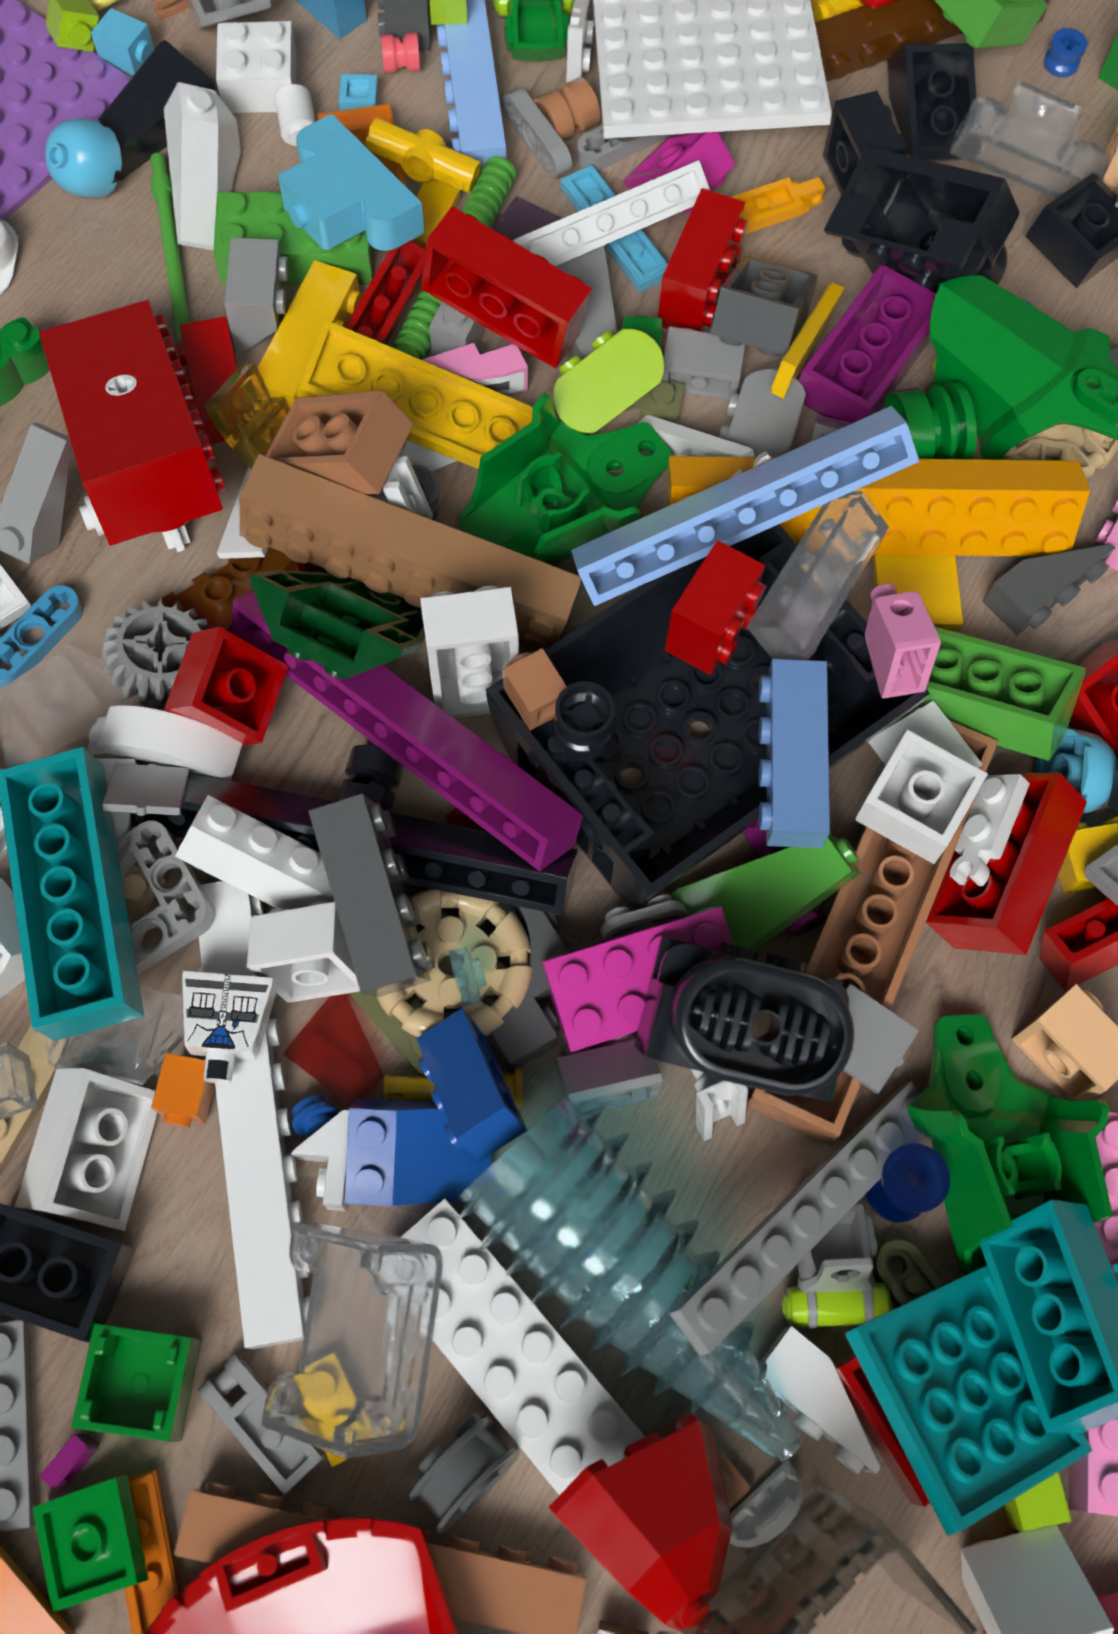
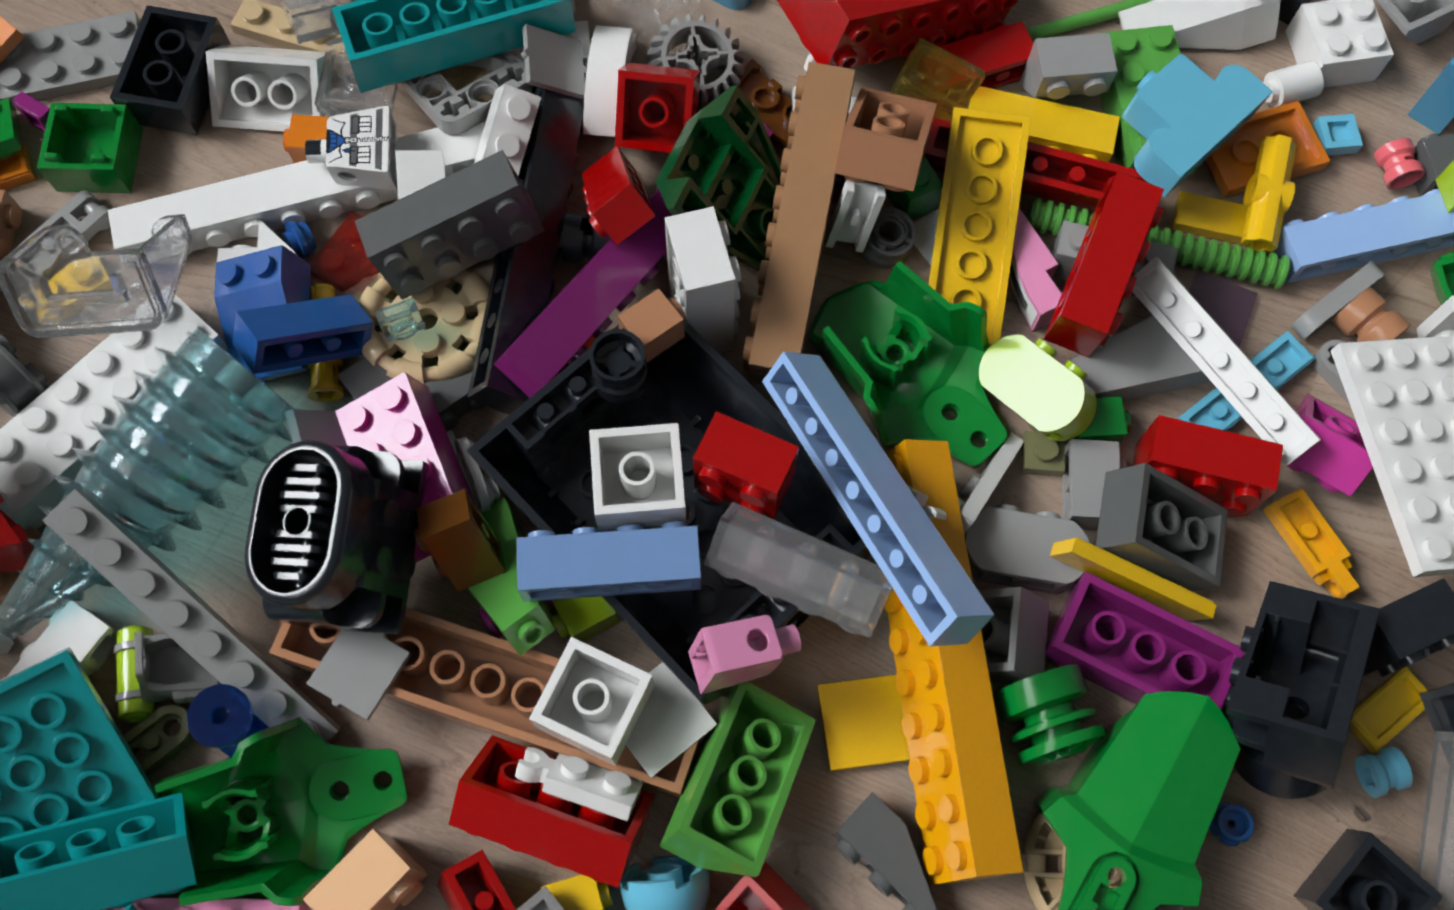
camera: 85 degrees right, 0 degrees up
(346, 729) = (616, 197): none -> red brick
(712, 712) = (637, 476): none -> white brick
(748, 910) = (459, 540): none -> reddish brown brick

